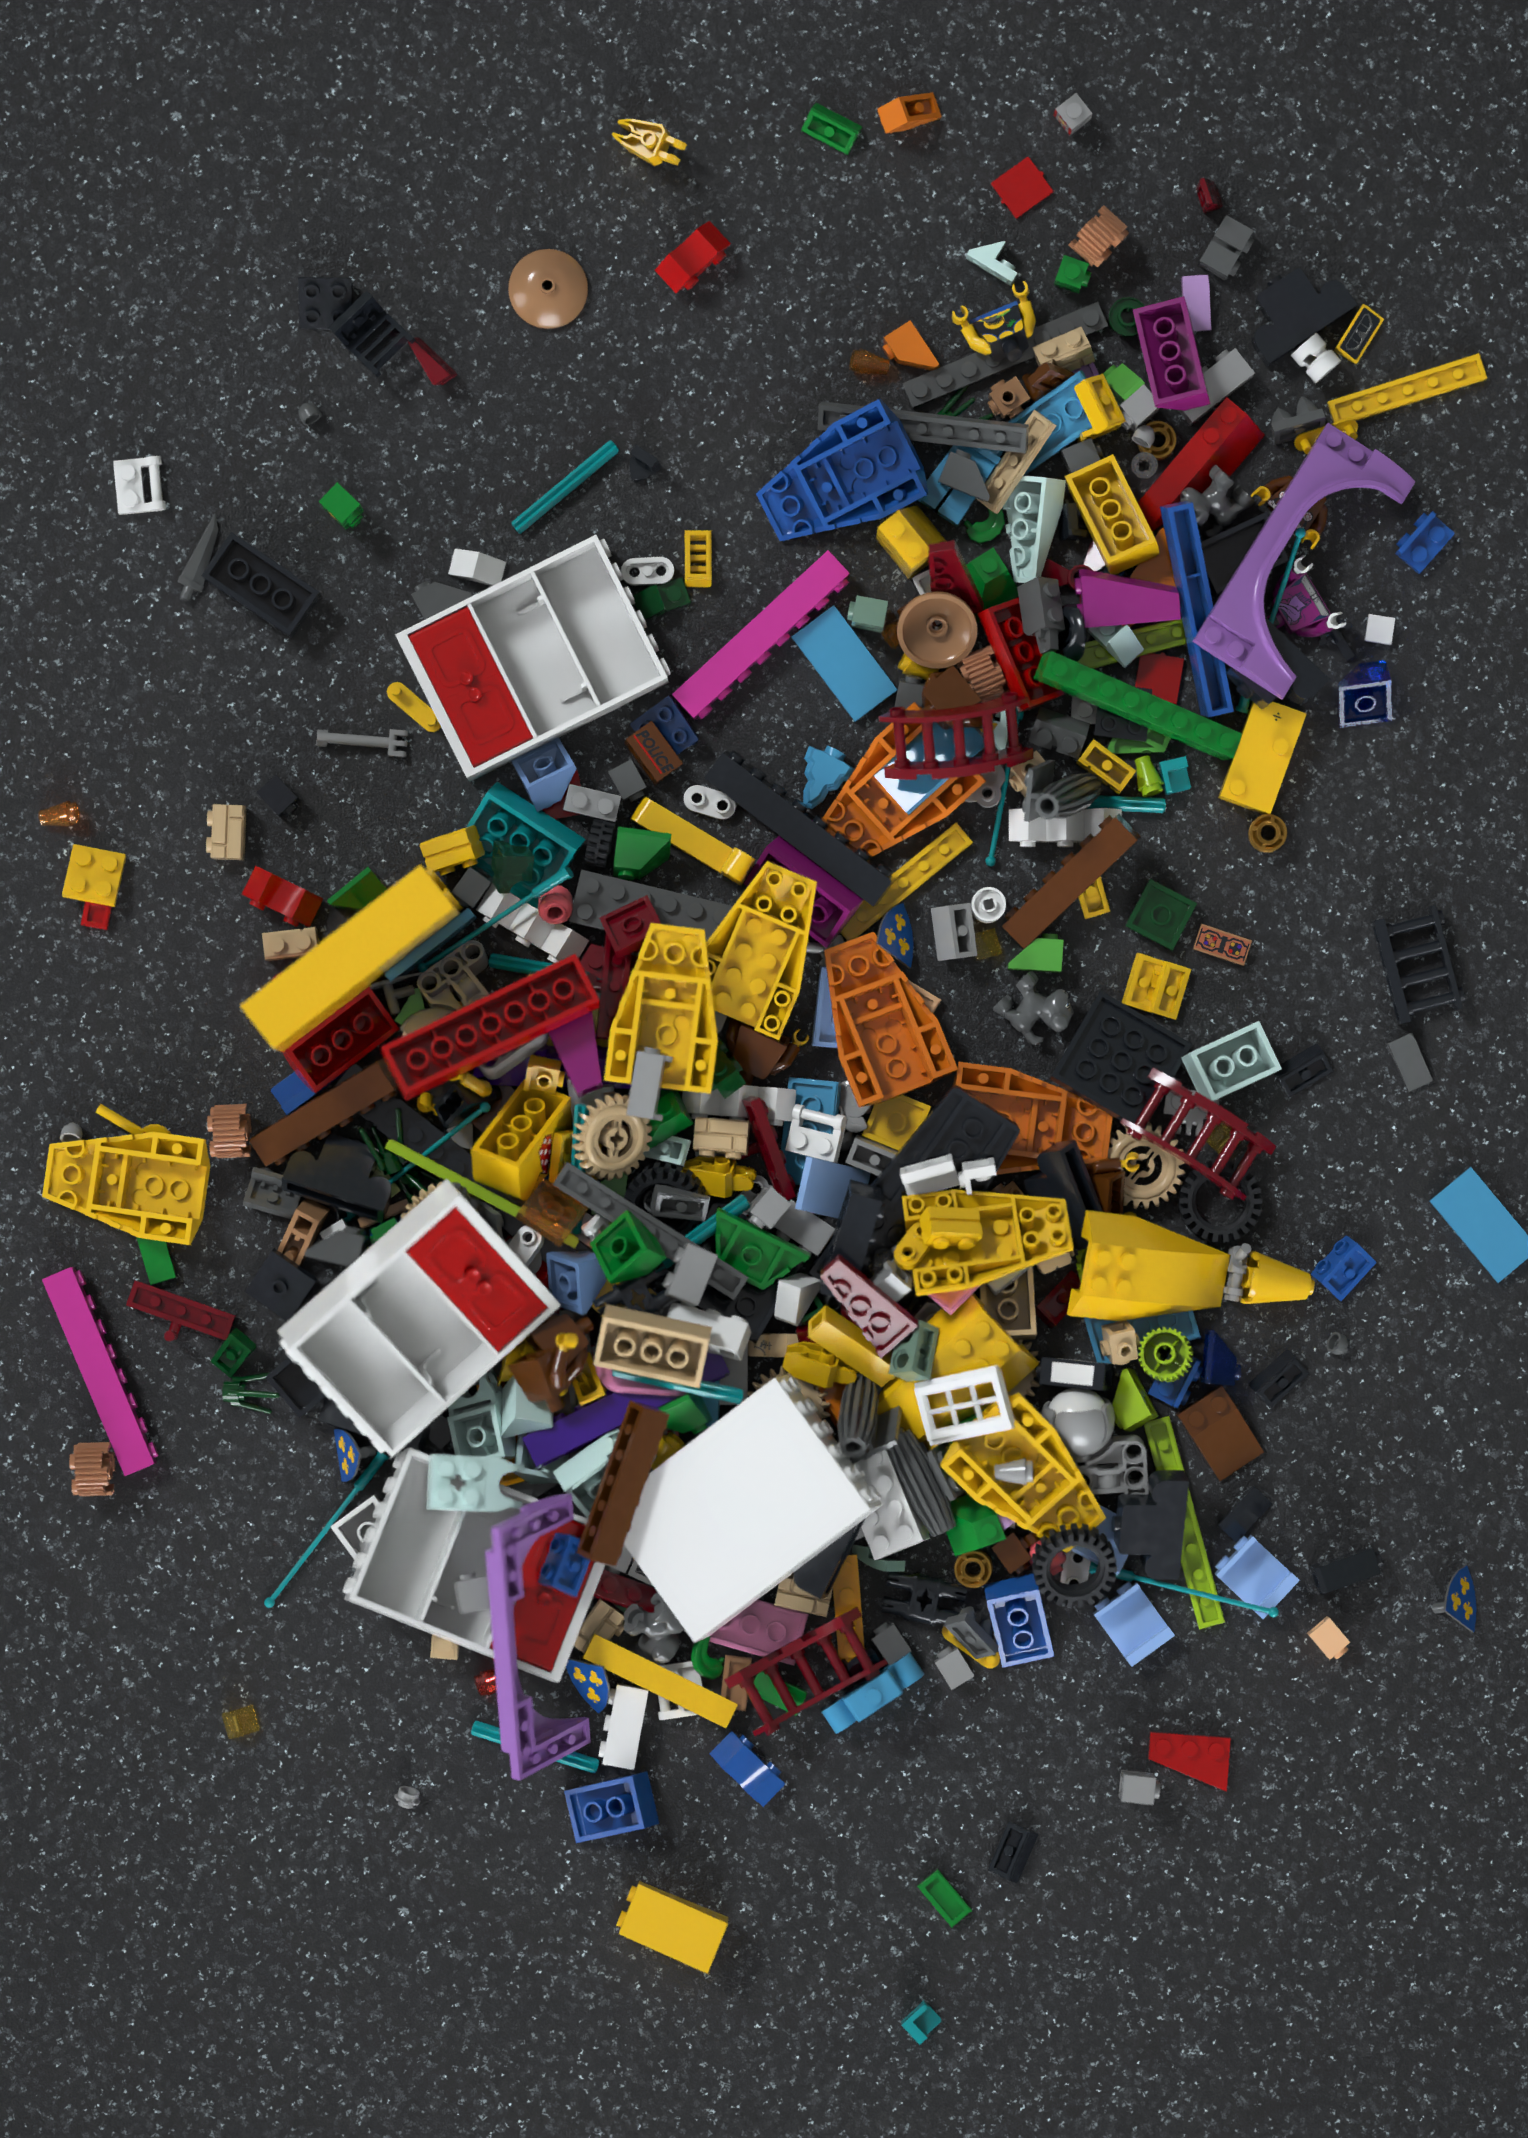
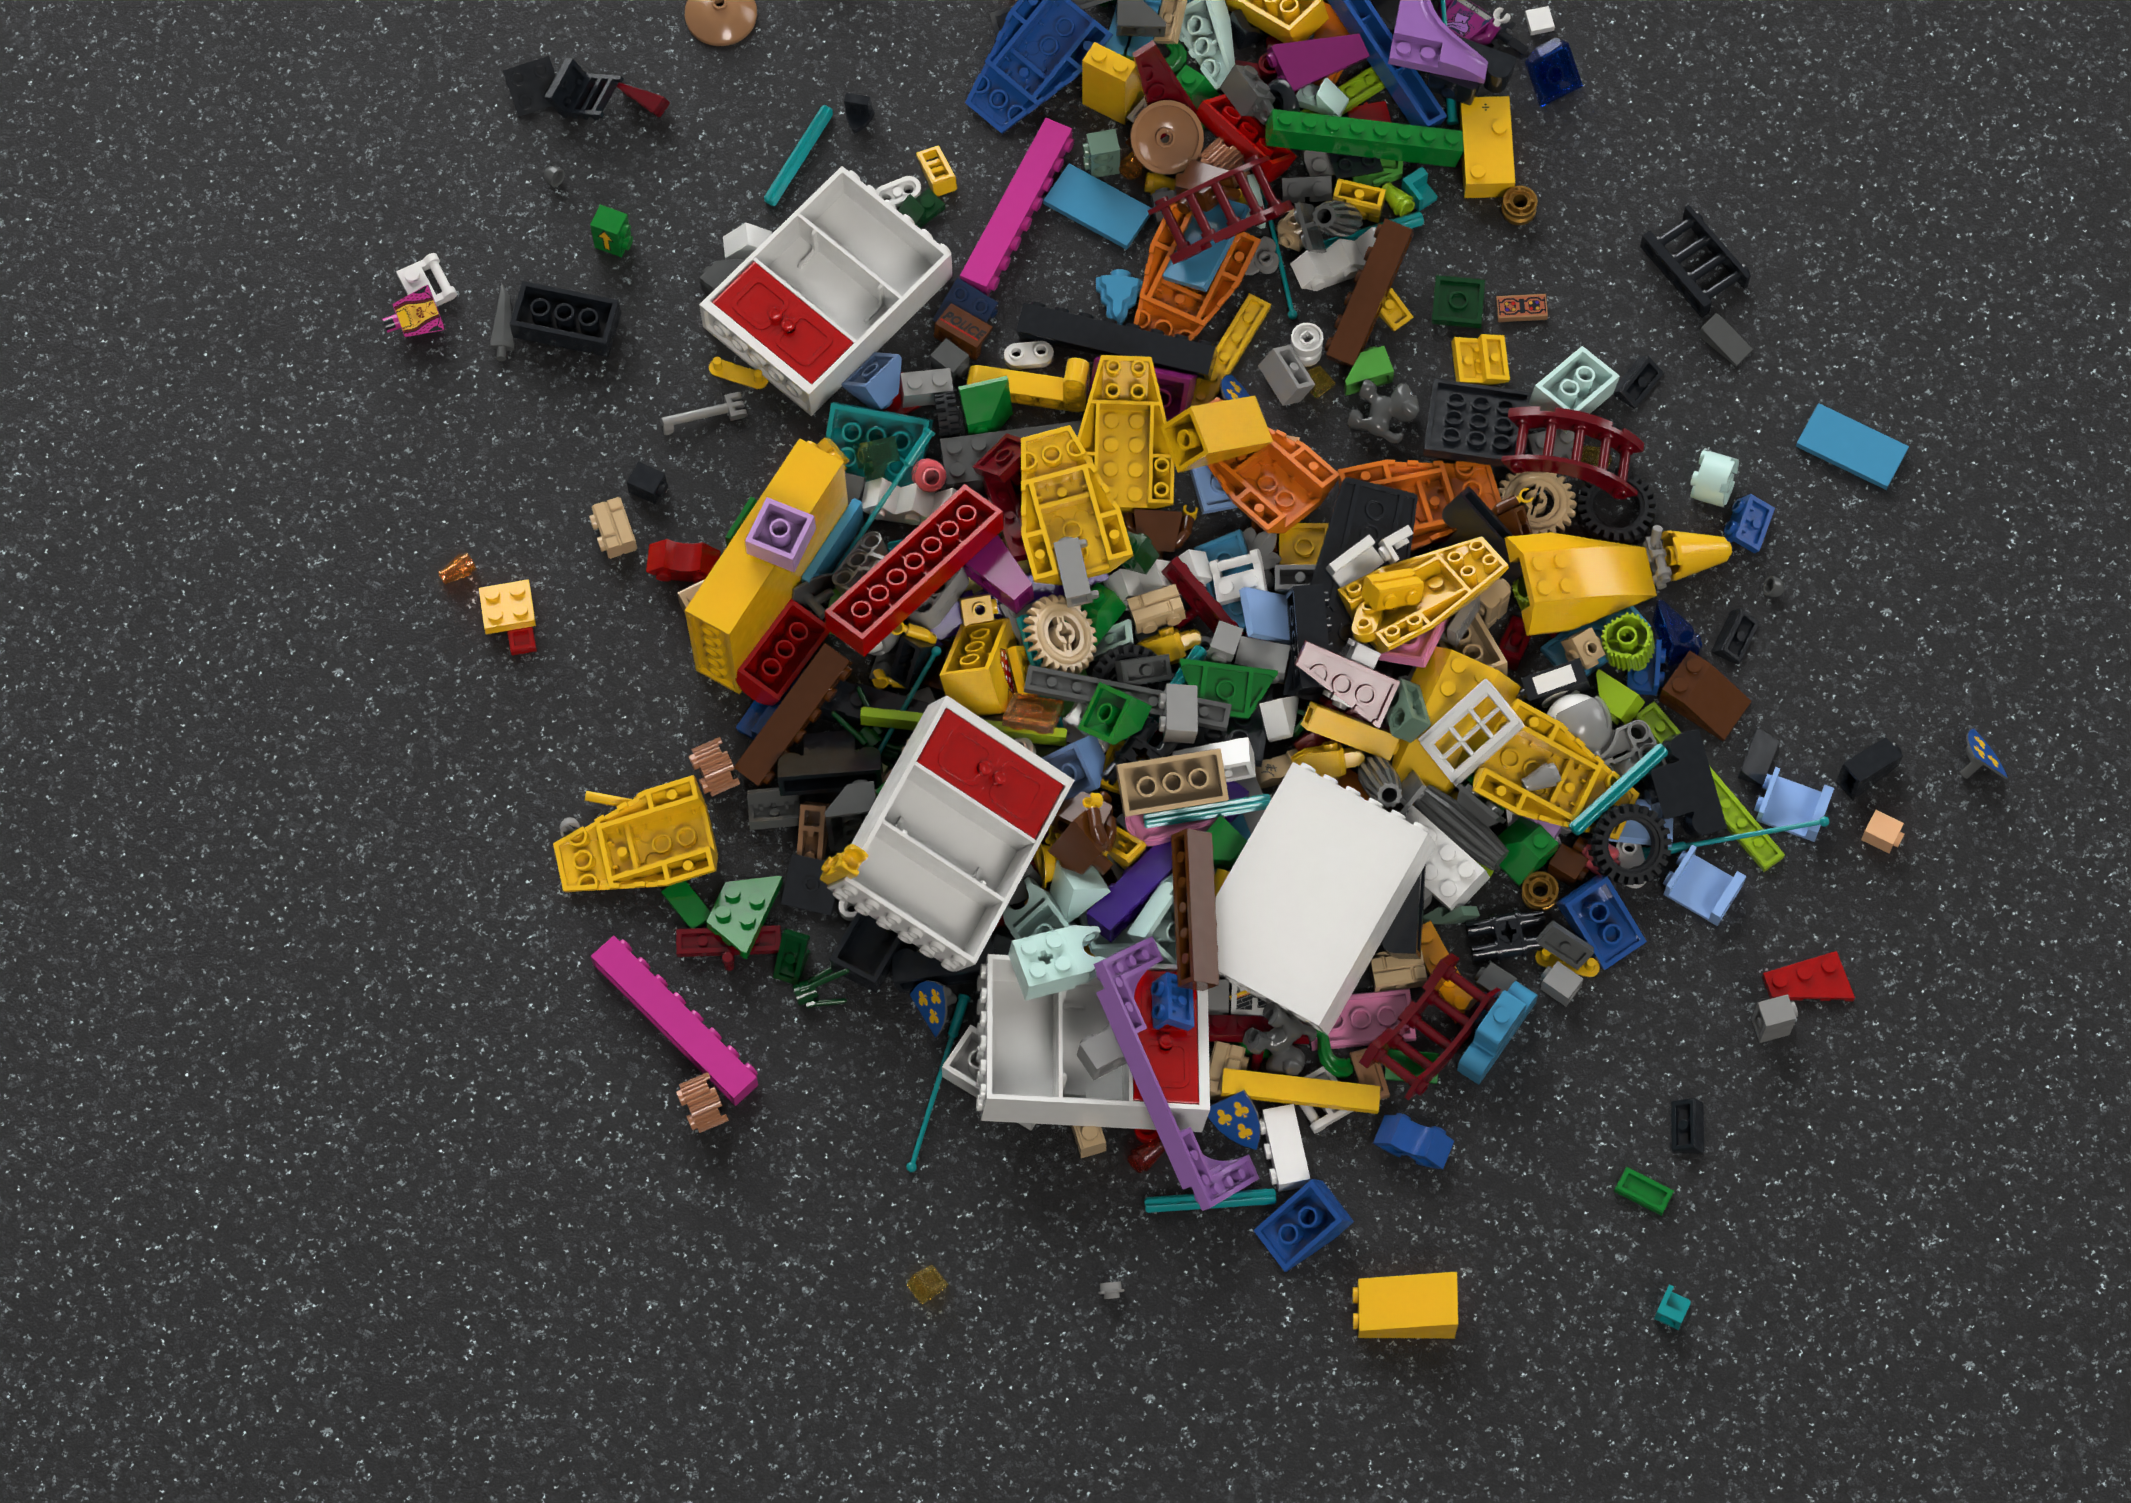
camera: 25 degrees left, 20 degrees down
(114, 522) = (415, 314): none -> torso
(204, 1287) = (743, 910): none -> wing
(294, 1328) = (843, 864): none -> yellow plate
(359, 970) = (780, 534): none -> lavender brick
(850, 986) = (1215, 432): none -> yellow slope
(1085, 1510) = (1618, 789): none -> teal axle
(1328, 1212) = (1715, 478): none -> light aqua brick

